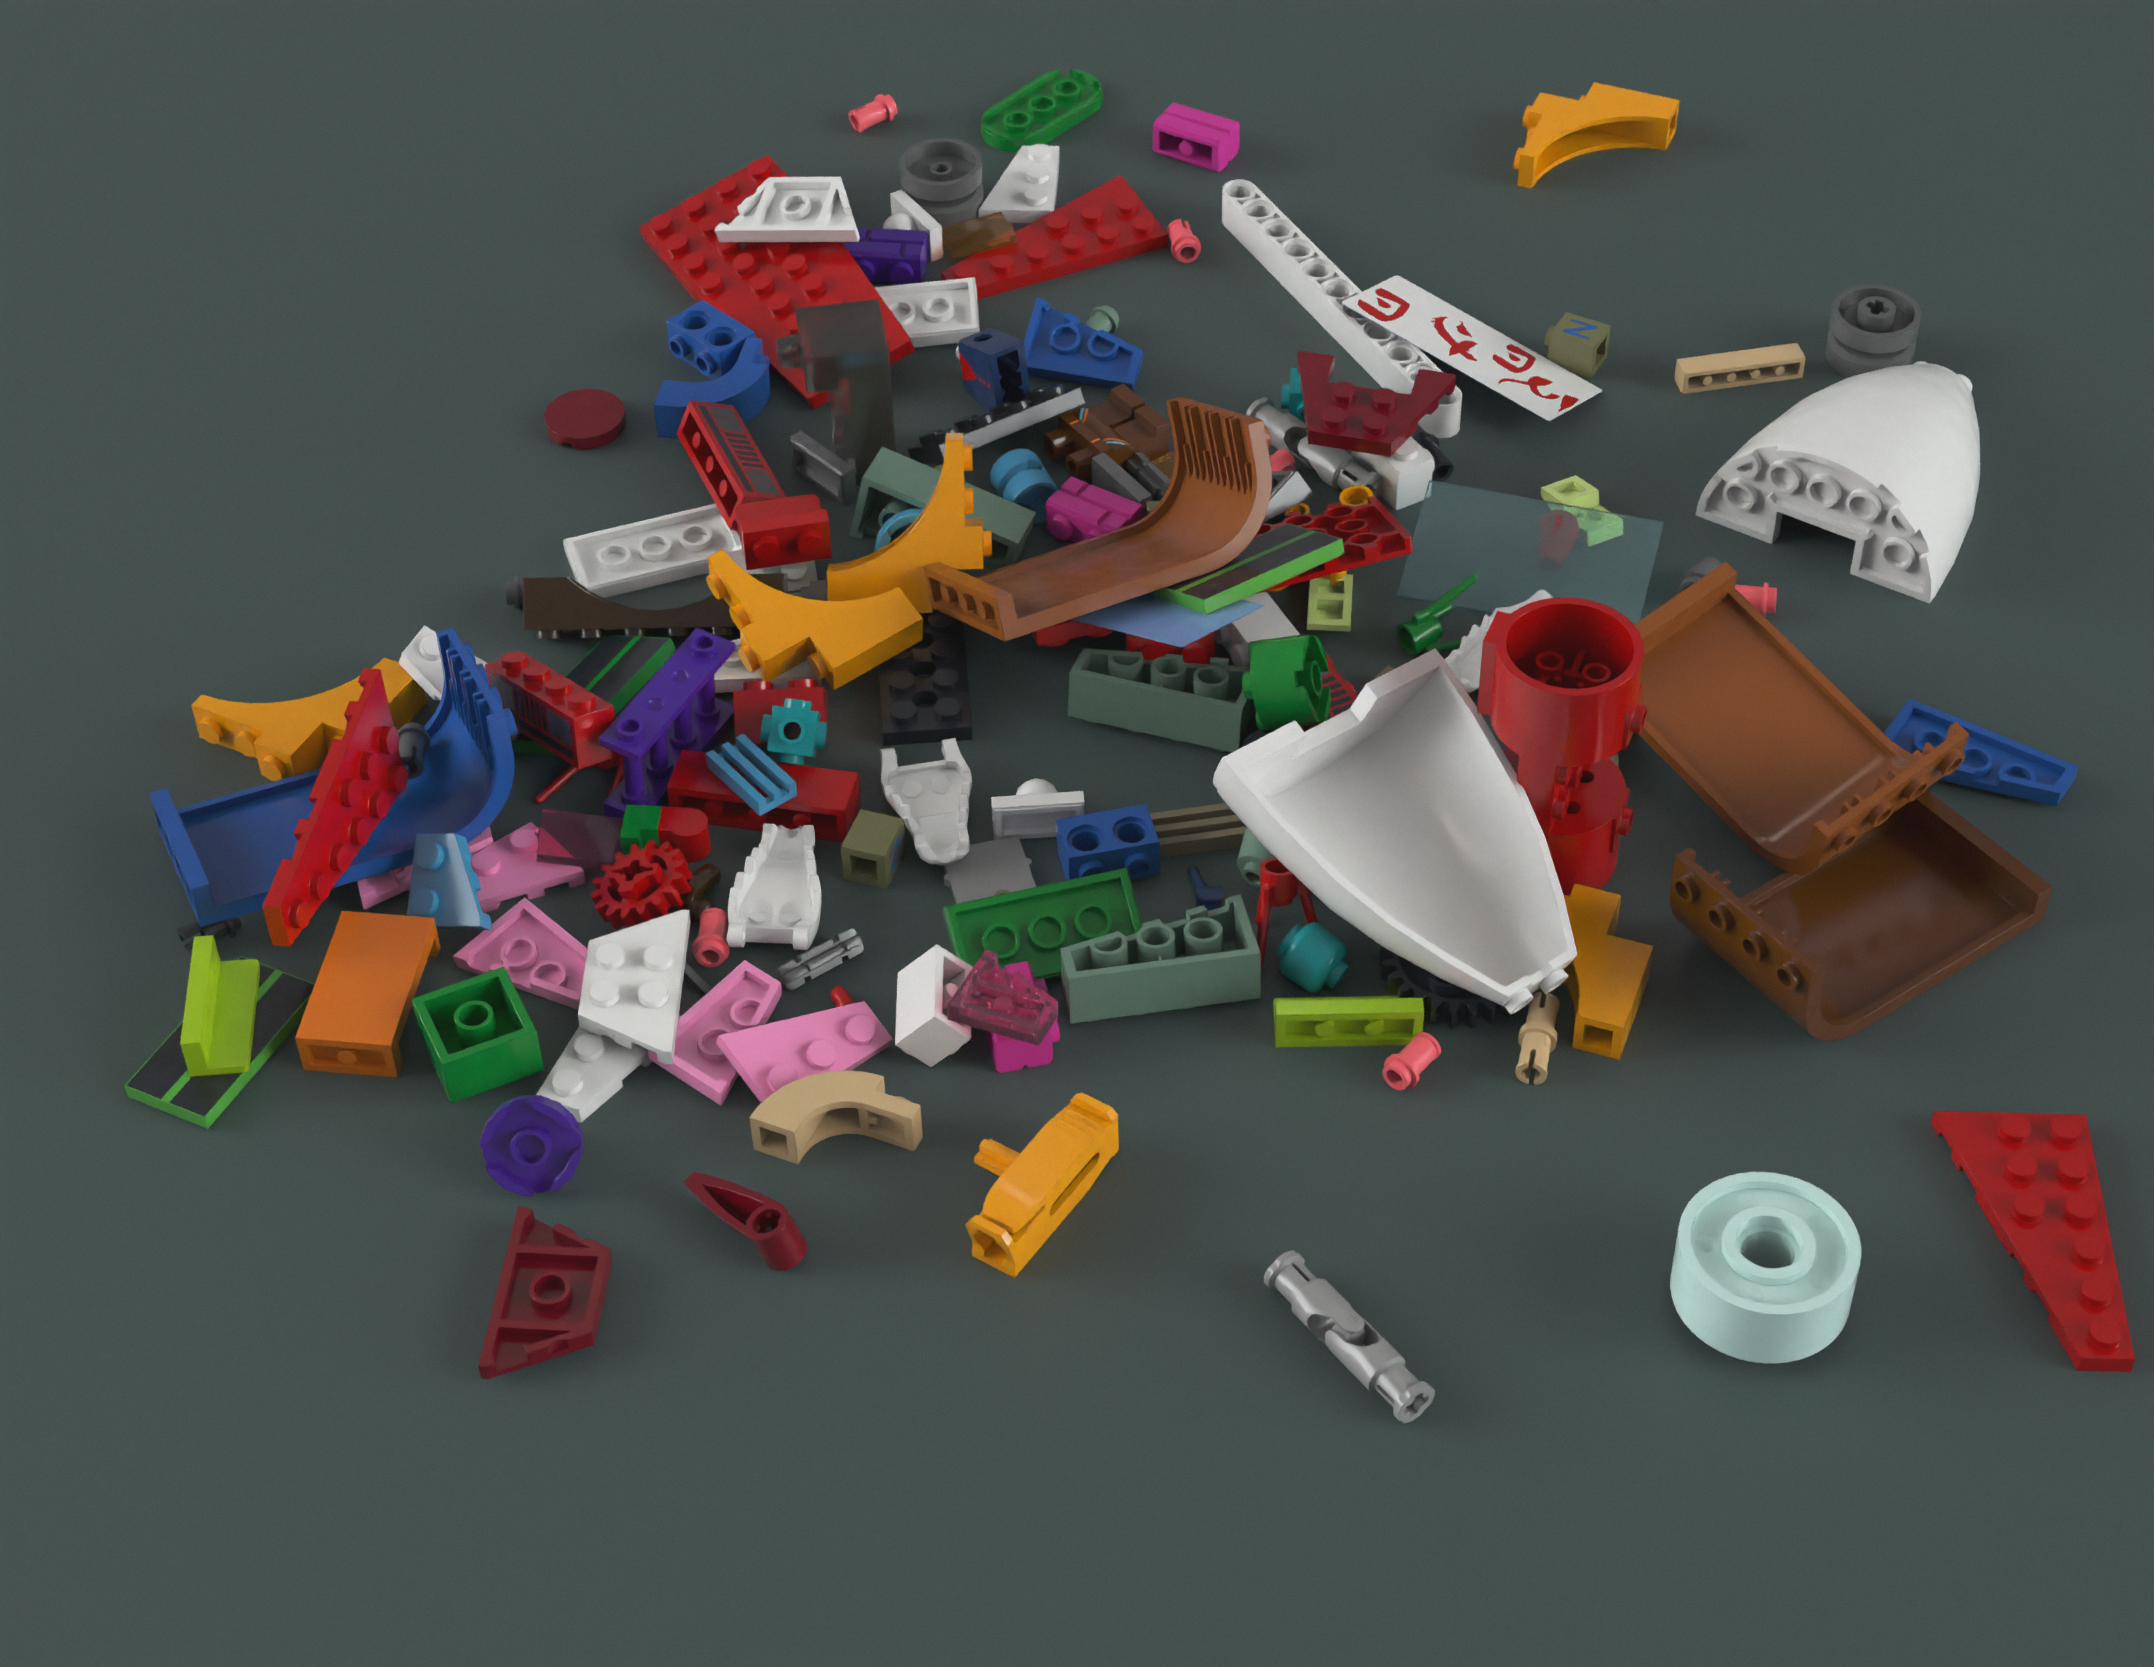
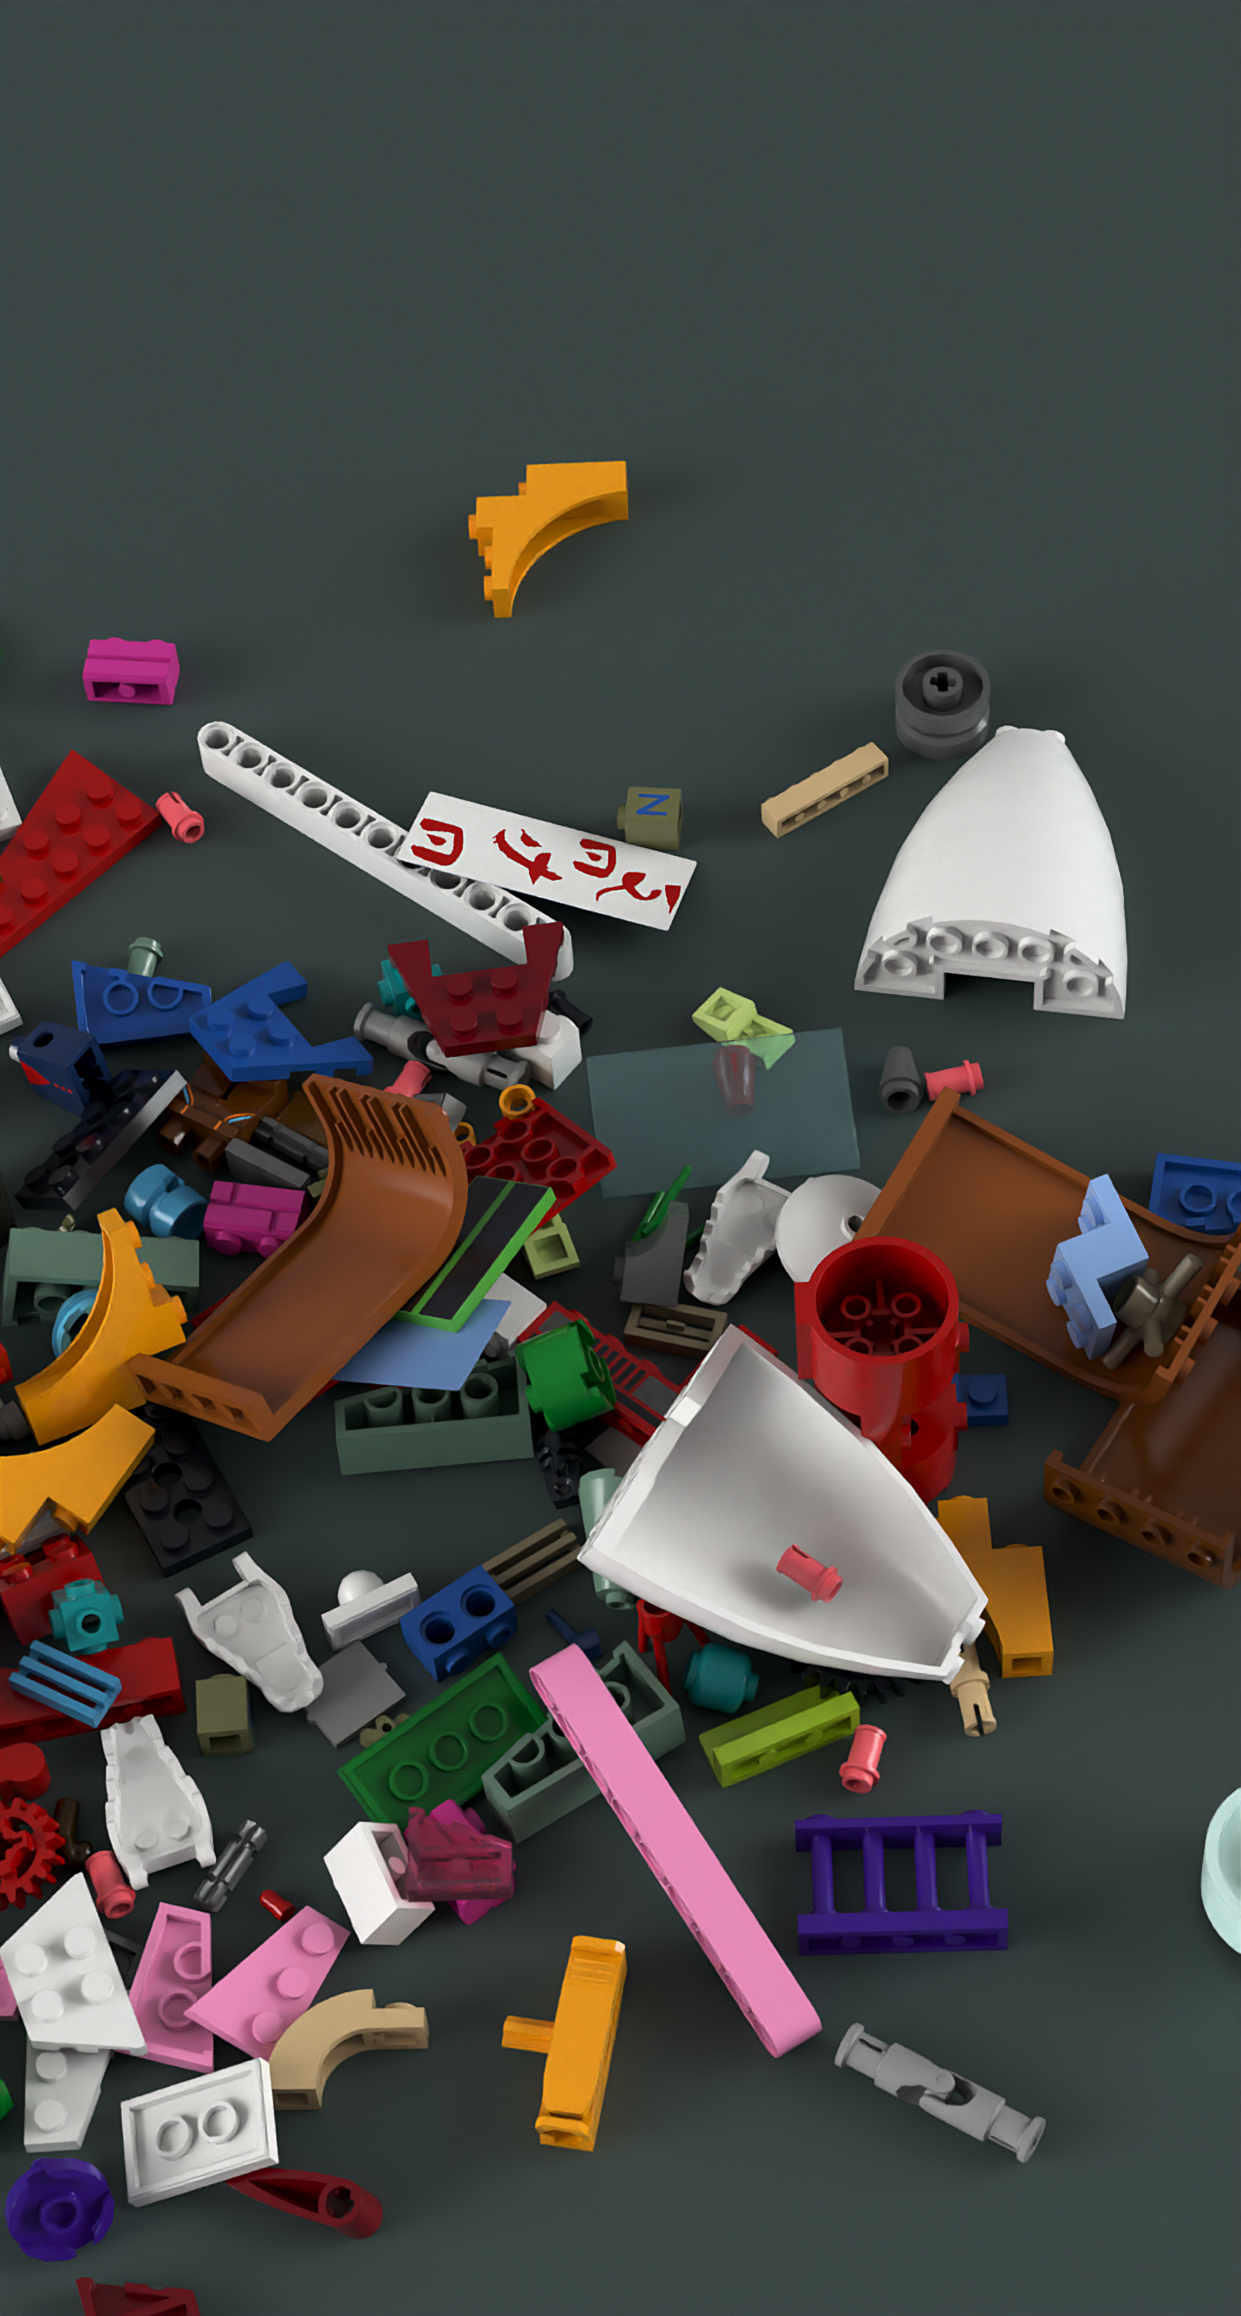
camera: 20 degrees left, 10 degrees up
(681, 1134) = (199, 2132): none -> white tile
(1148, 382) = (258, 1042): none -> blue wing
(1201, 1063) = (676, 1851): none -> bright pink beam
(1387, 1202) = (915, 1931): none -> dark purple fence
(1406, 640) = (654, 1264): none -> dark grey arch
(1433, 898) = (810, 1574): none -> coral pin
(1653, 831) = (984, 1398): none -> blue bracket
(1803, 744) = (1094, 1267): none -> light blue bracket
(1832, 786) = (1149, 1310): none -> dark tan bar

